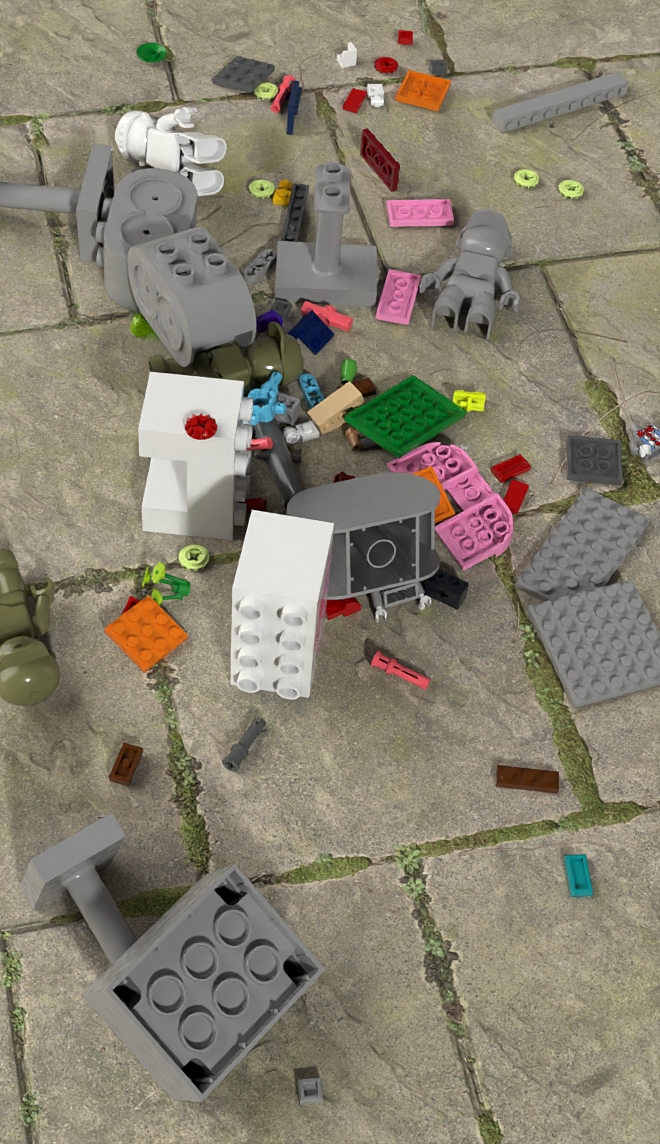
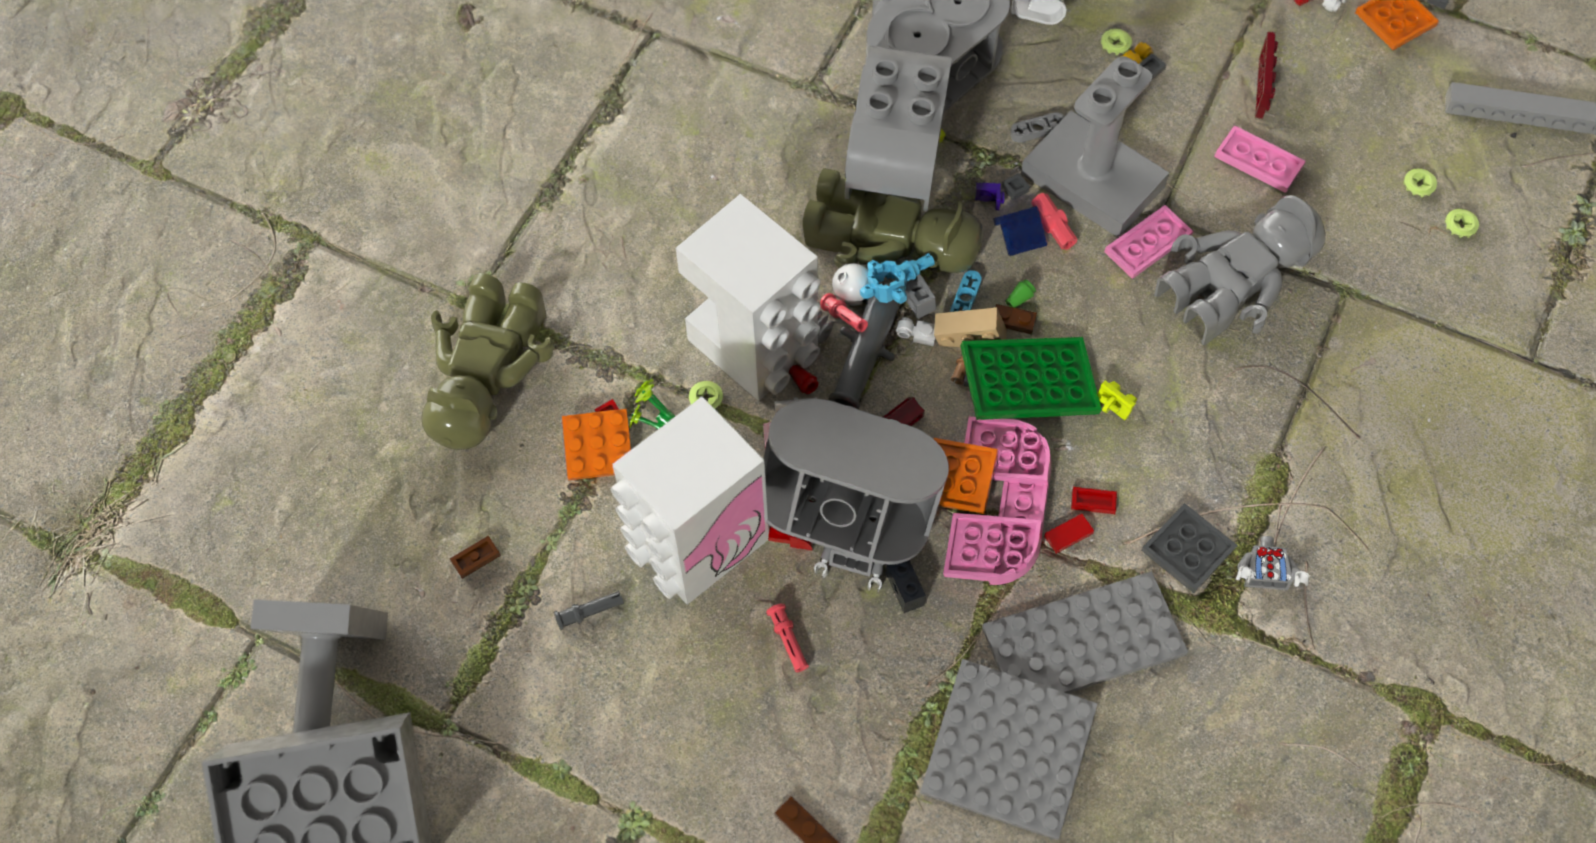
camera: 45 degrees right, 10 degrees up
(198, 432) = (739, 284): red gear -> none

